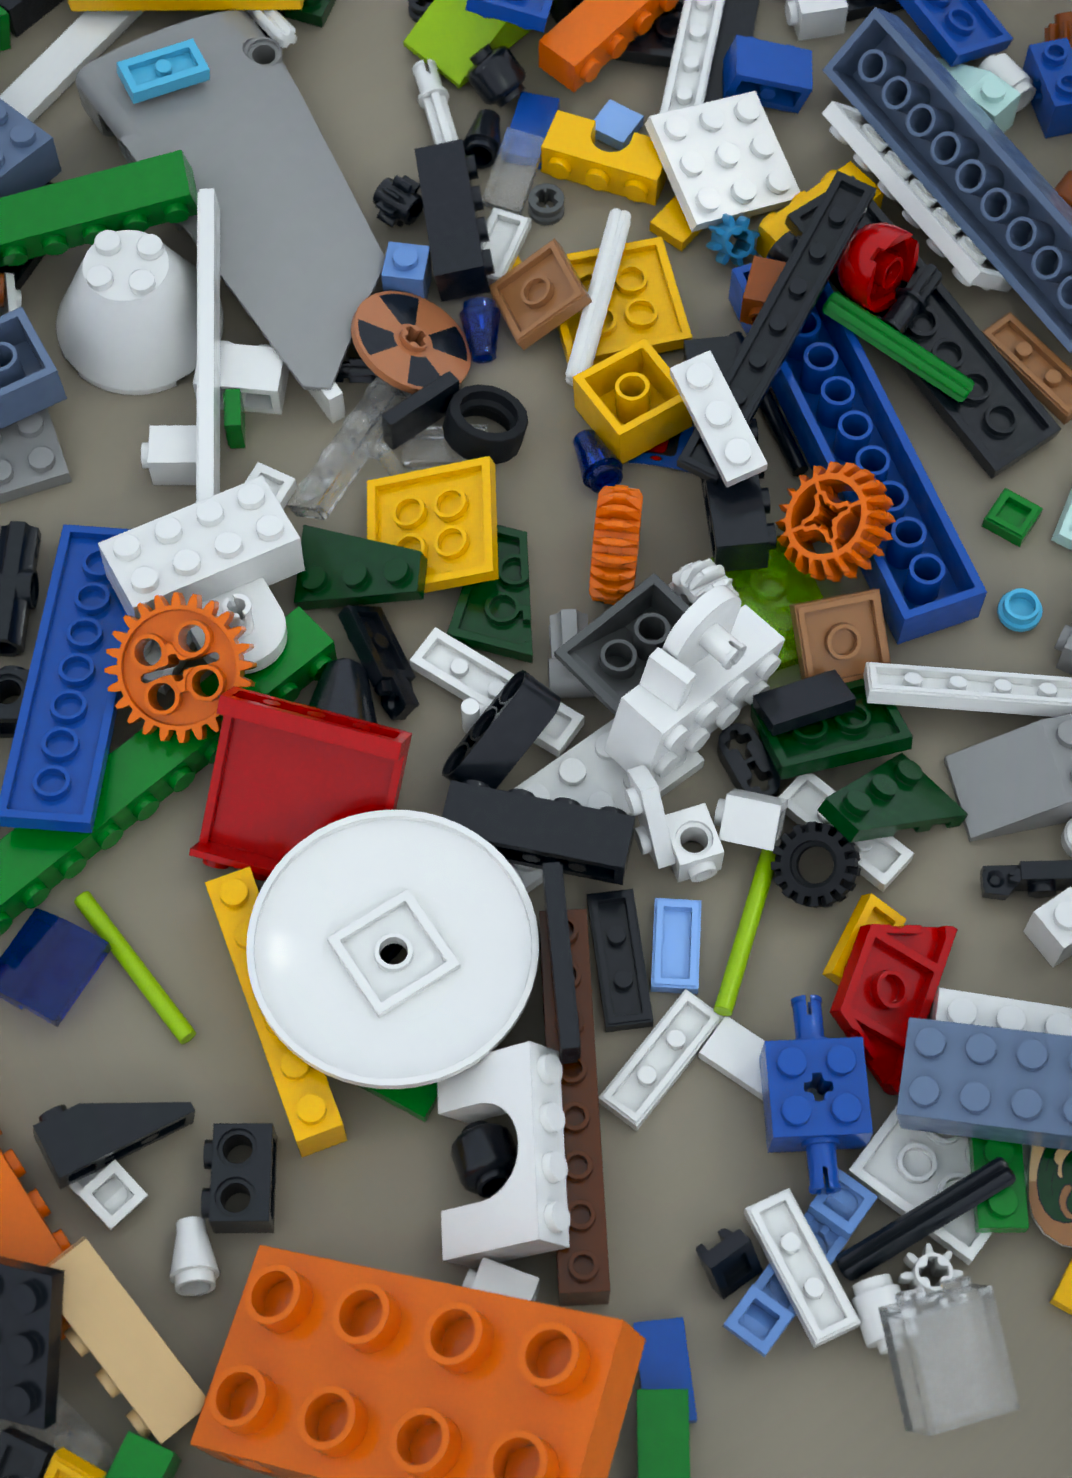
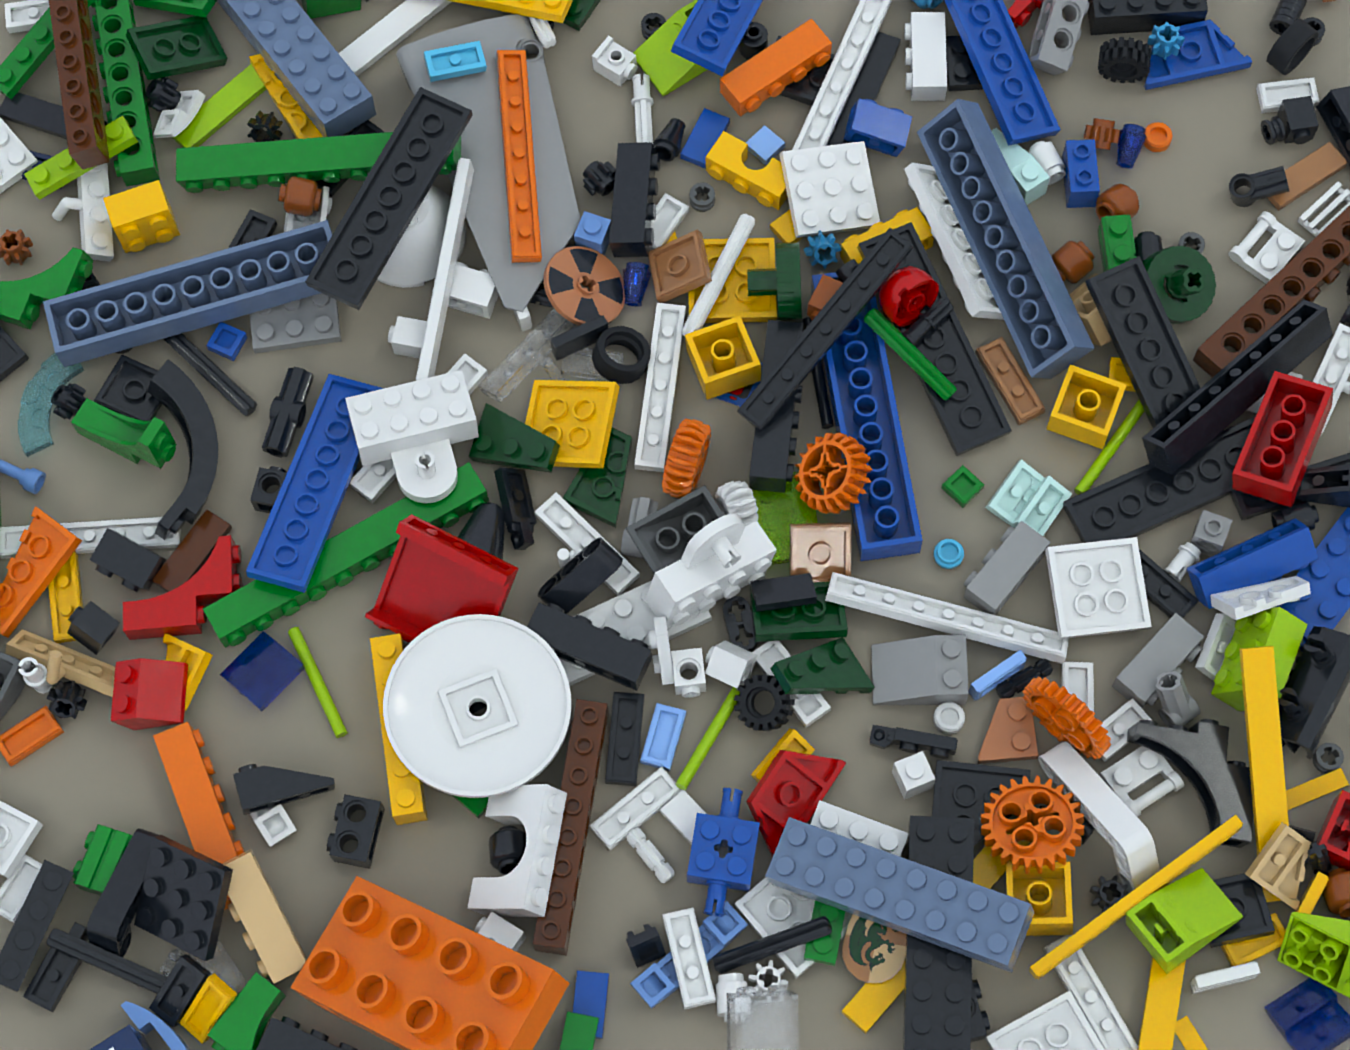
camera: 15 degrees right, 5 degrees up
(107, 257) = (389, 198): none -> black plate
(169, 628) = (377, 466): orange gear -> none
(193, 1259) = (316, 875): white cone -> none
(234, 418) = (456, 318): green tile -> none
(280, 185) = (518, 156): none -> orange tile
(382, 53) = (614, 62): none -> white brick
(496, 75) = (688, 94): black head -> none
(513, 171) = (684, 169): clear tile -> none
(551, 462) = (660, 387): none -> white plate
(561, 963) = (579, 737): black tile -> none
(596, 461) = (691, 396): clear blue cone -> none
(667, 678) = (686, 566): white tile -> none
(695, 283) = (780, 281): none -> dark green piece
(701, 1124) = (650, 855): none -> white axle
(718, 419) = (769, 388): white plate -> none

